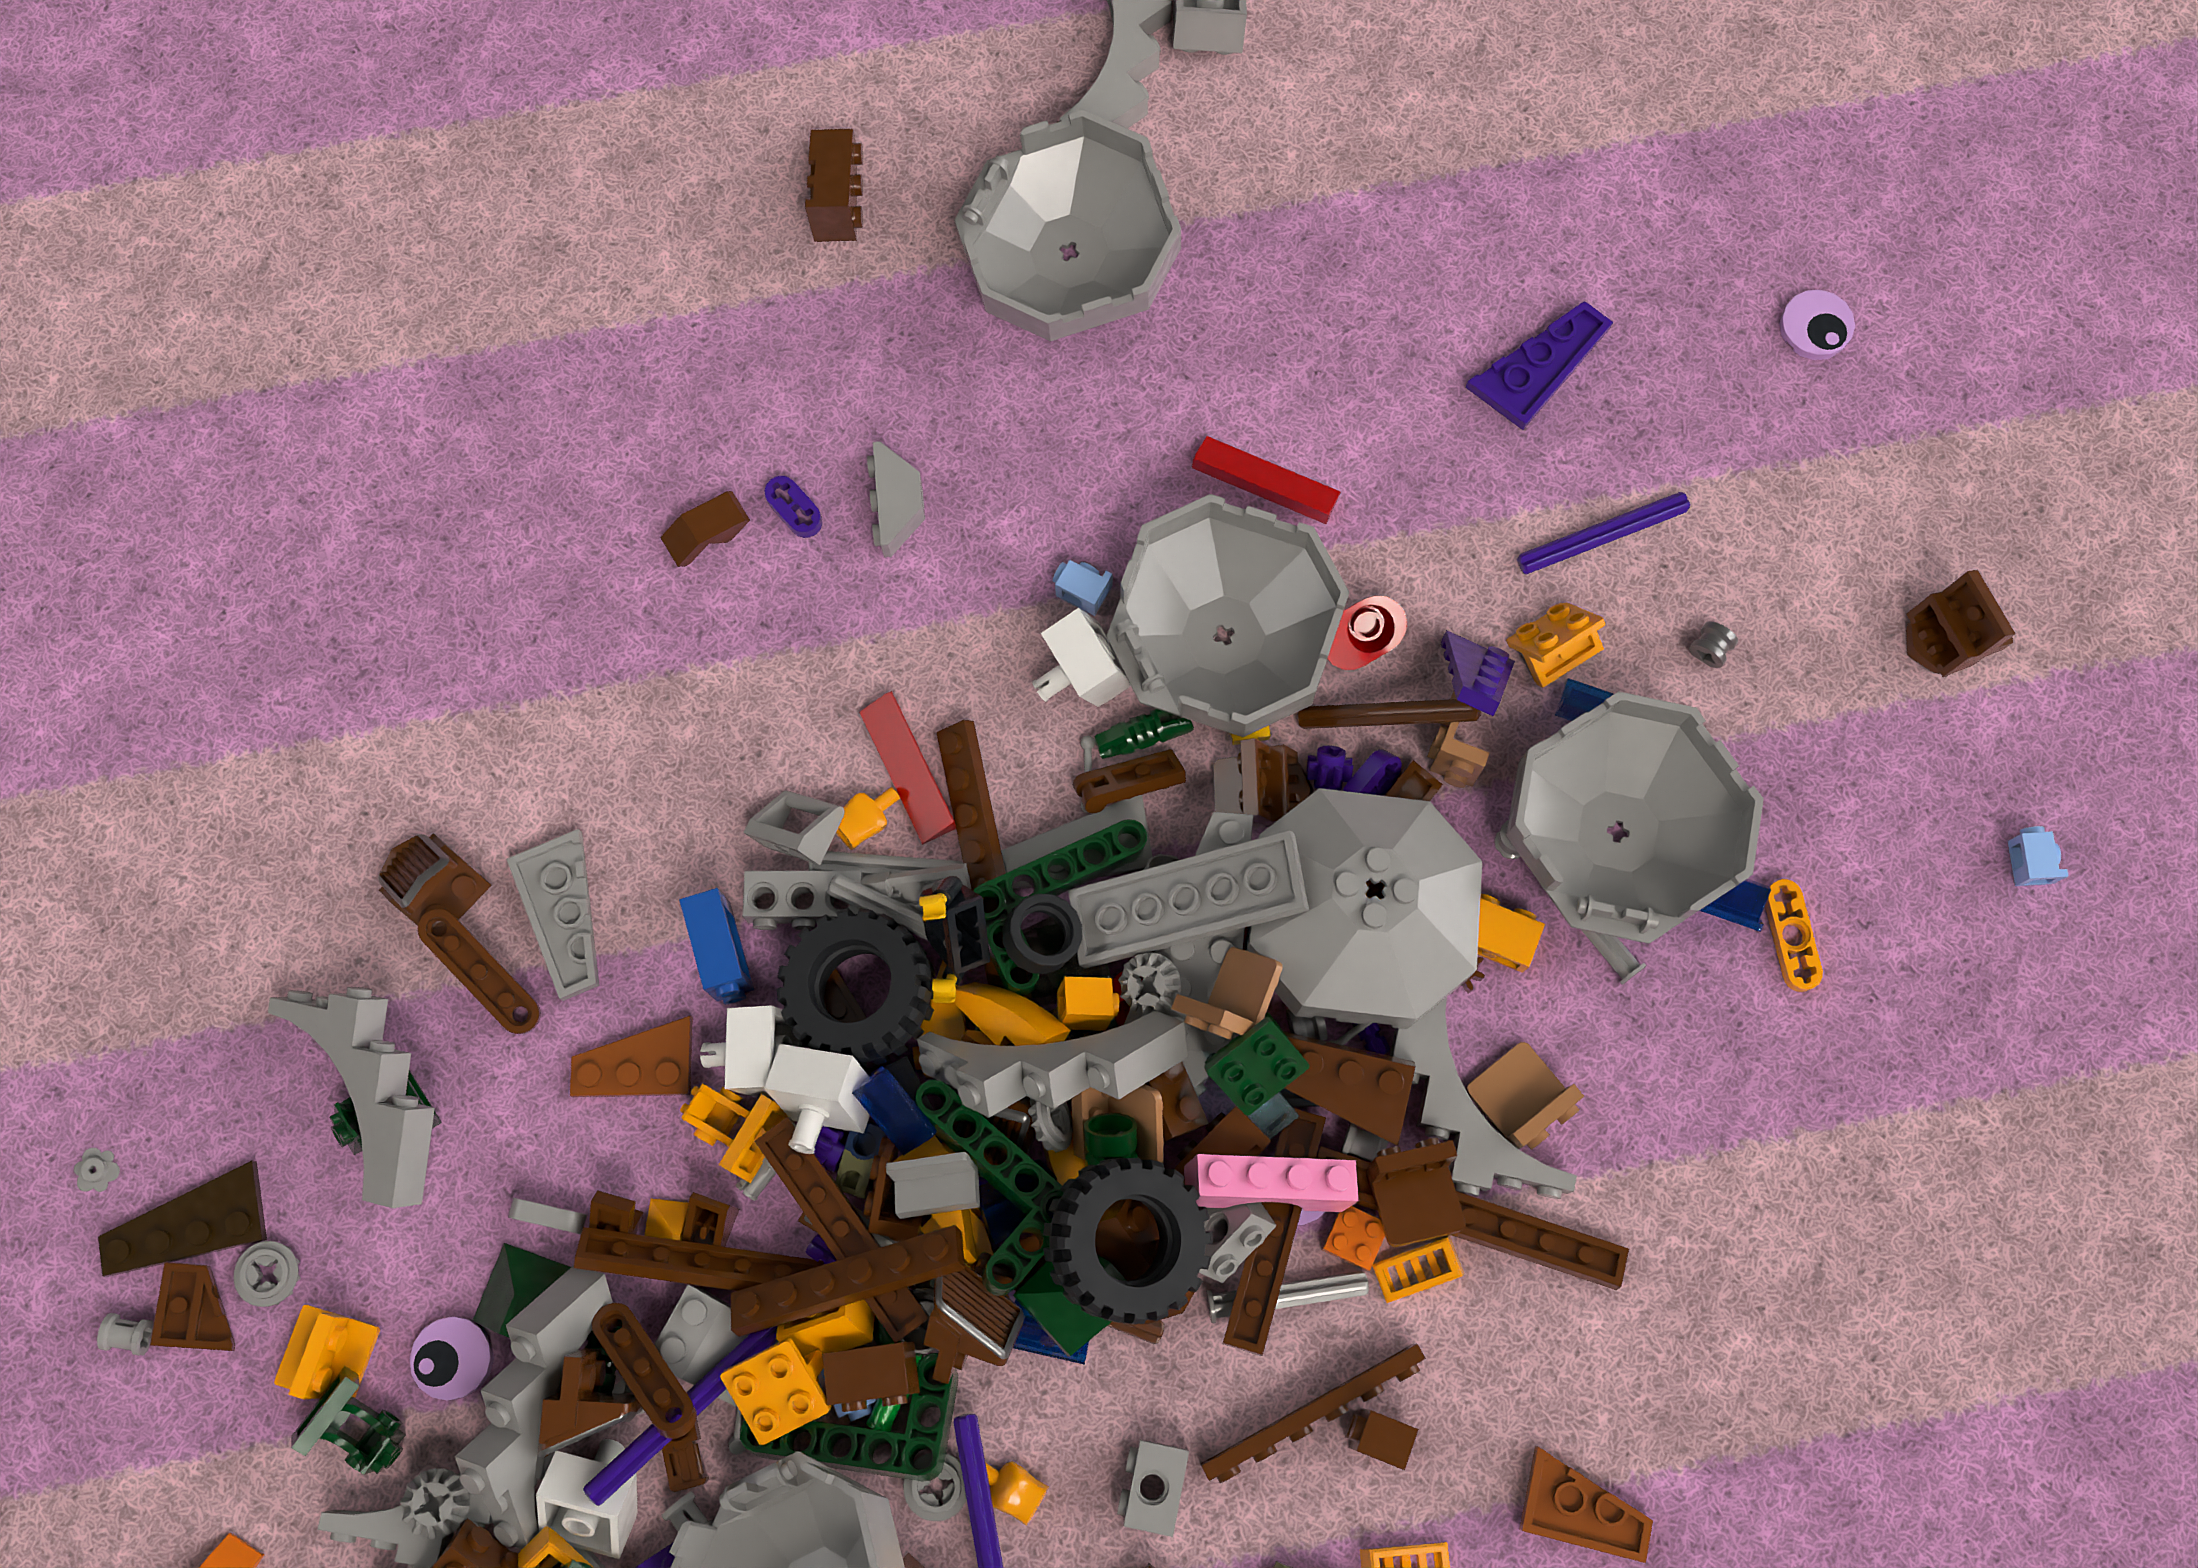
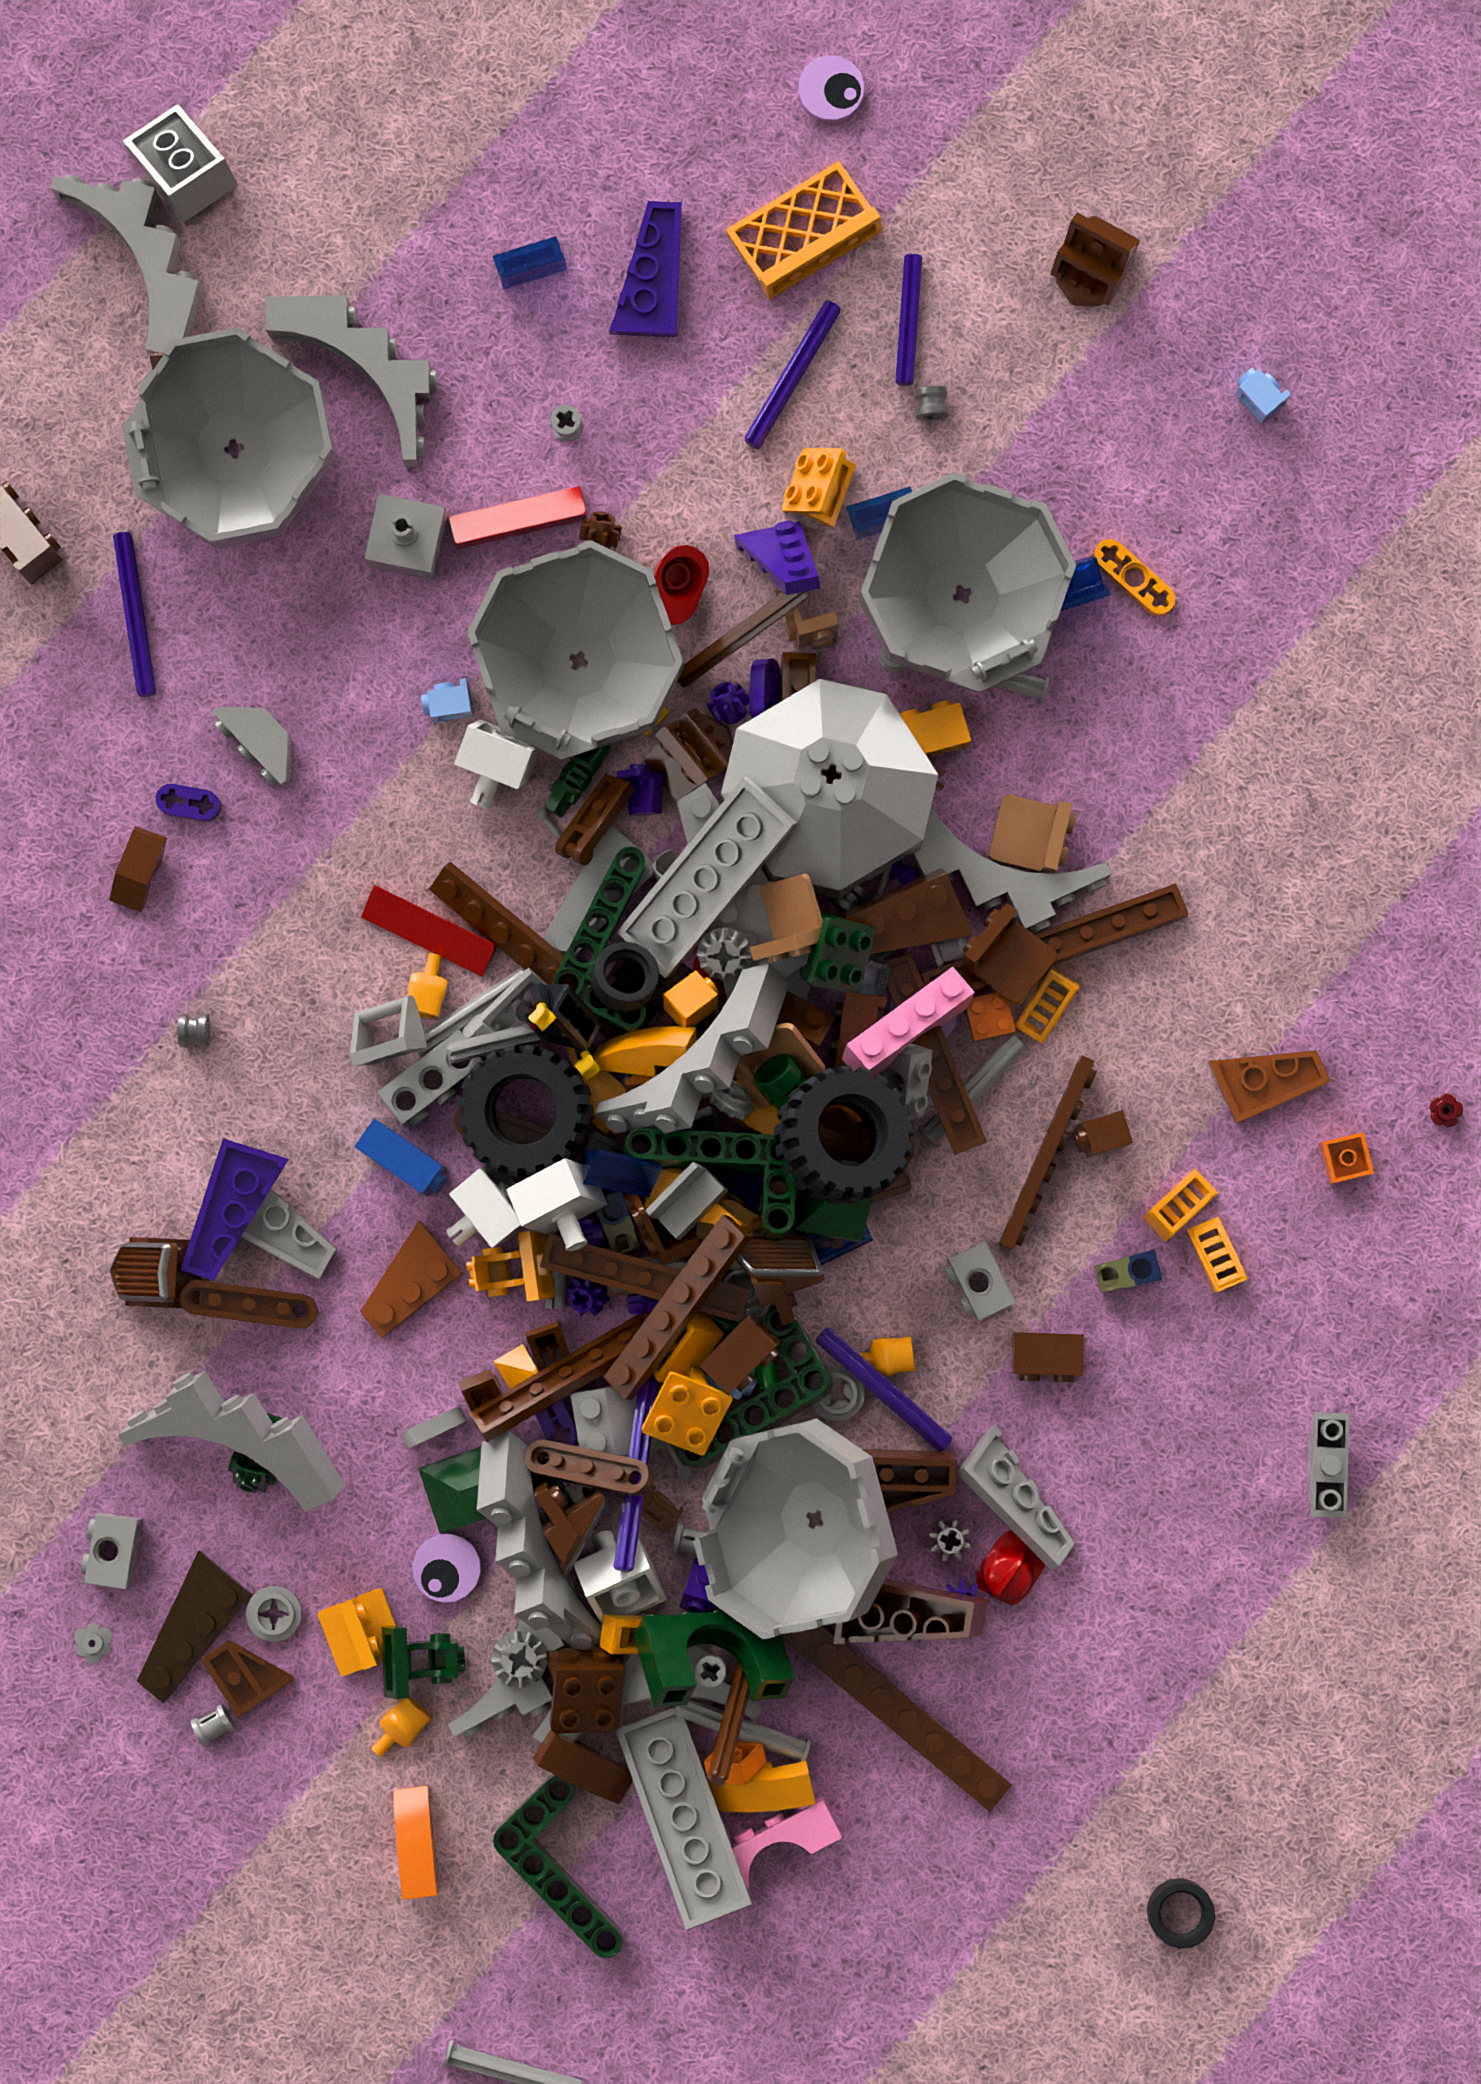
camera: 40 degrees left, 10 degrees up
(202, 1093) = (125, 1534): none -> light grey brick
(288, 1476) = (401, 1725): none -> light orange piece
(540, 867) = (233, 1196): none -> dark purple wing
(636, 698) = (193, 1030): none -> flat silver wheel
(649, 1299) = (564, 1418): none -> dark purple beam
(778, 1206) = (587, 1296): none -> dark purple gear
(877, 324) = (134, 614): none -> dark purple axle
(1156, 422) = (406, 536): none -> light grey brick
(1199, 789) = (648, 790): none -> dark purple bracket
(1232, 212) = (327, 324): none -> light grey arch
(1334, 536) = (601, 529): none -> reddish brown gear
(1377, 422) = (568, 433): none -> light grey bush
(1440, 282) = (530, 262): none -> clear blue panel
(1707, 445) = (824, 247): none -> light orange fence
(1745, 561) = (908, 319): none -> dark purple axle

